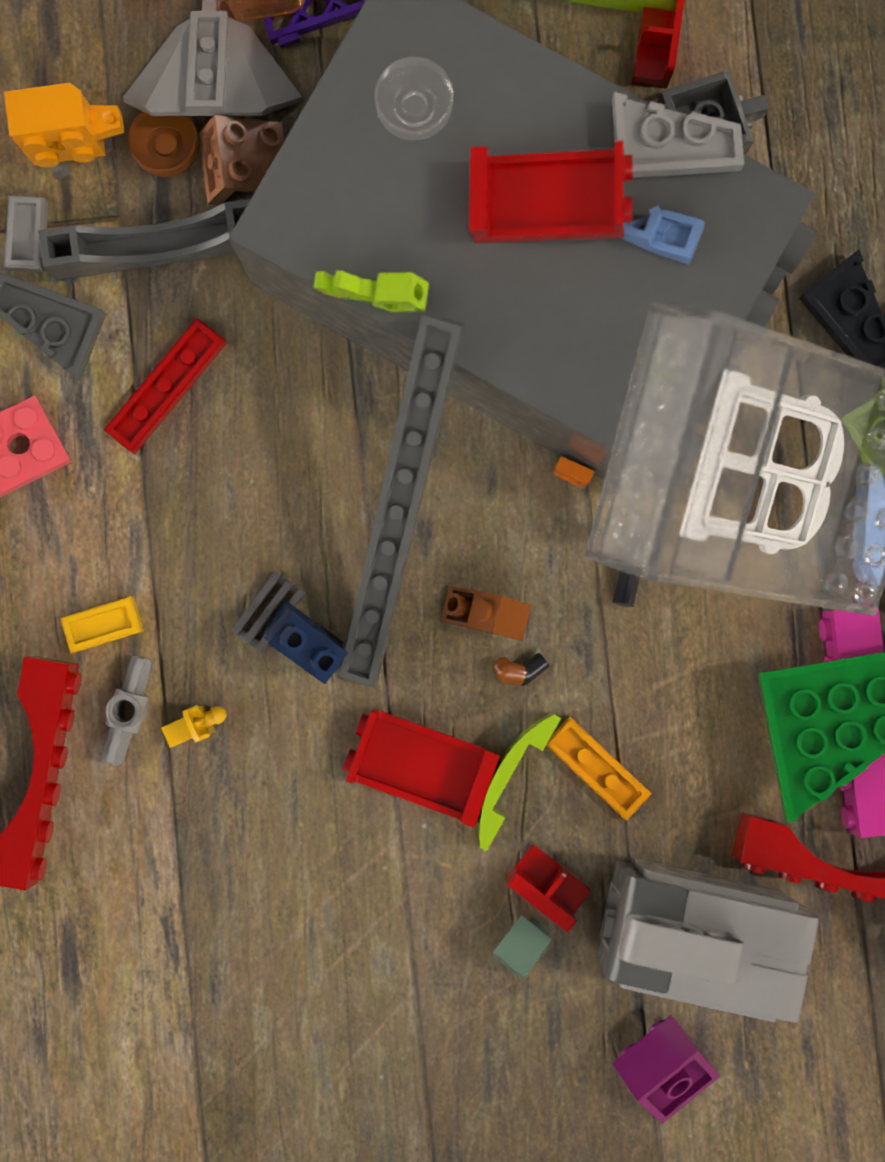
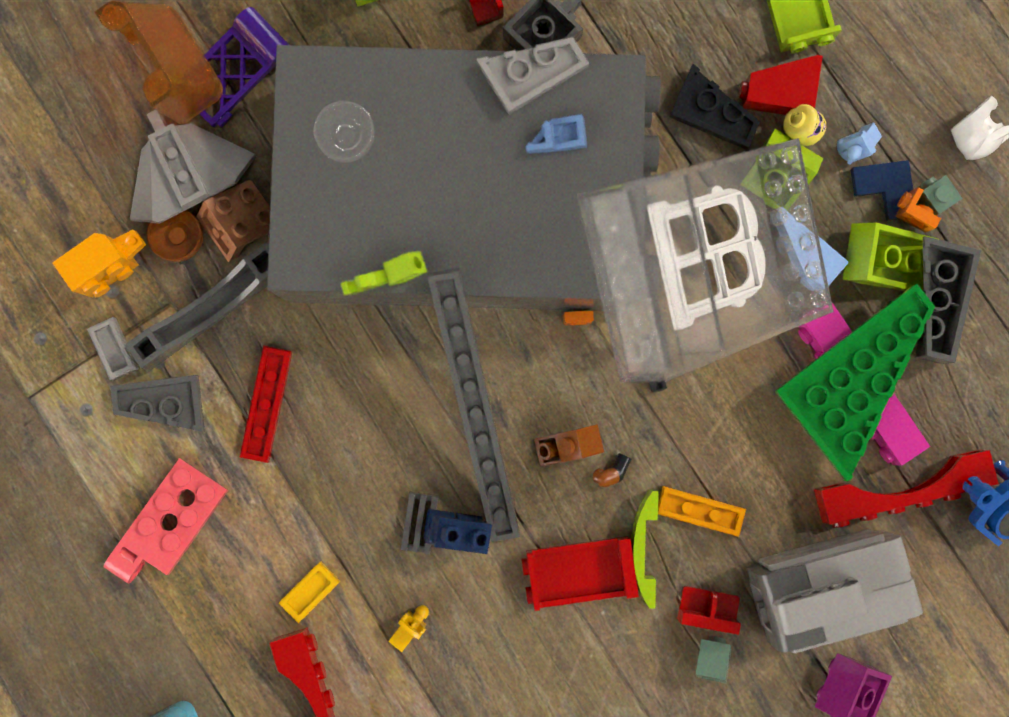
camera: 30 degrees left, 0 degrees up
(120, 728) = (360, 656): light grey axle -> none
(549, 195) = (470, 151): red panel -> none

